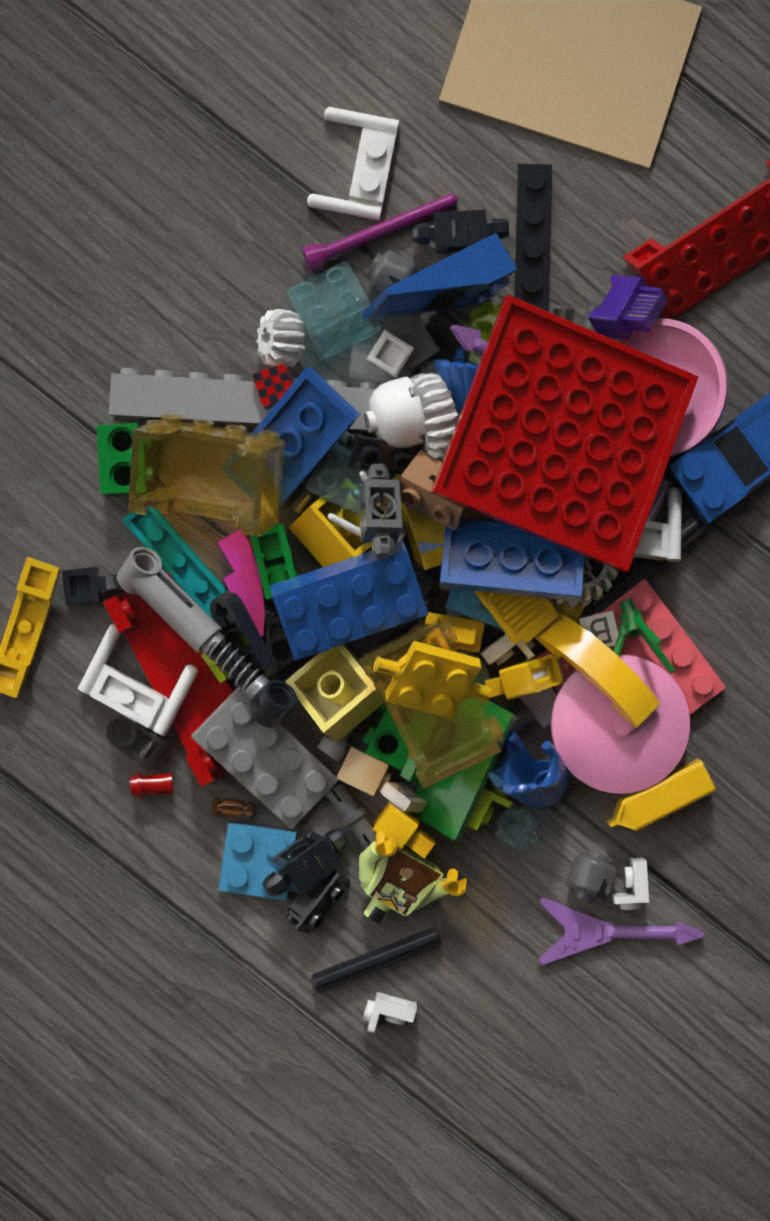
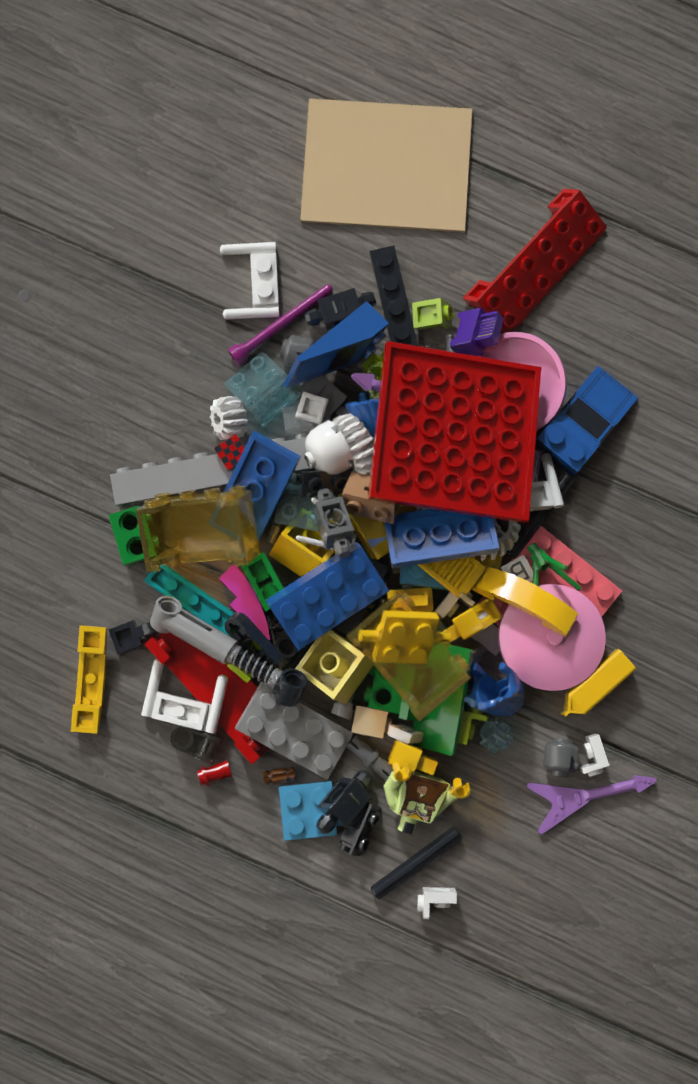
camera: 15 degrees left, 5 degrees down
(578, 268) = (432, 314): none -> lime bracket

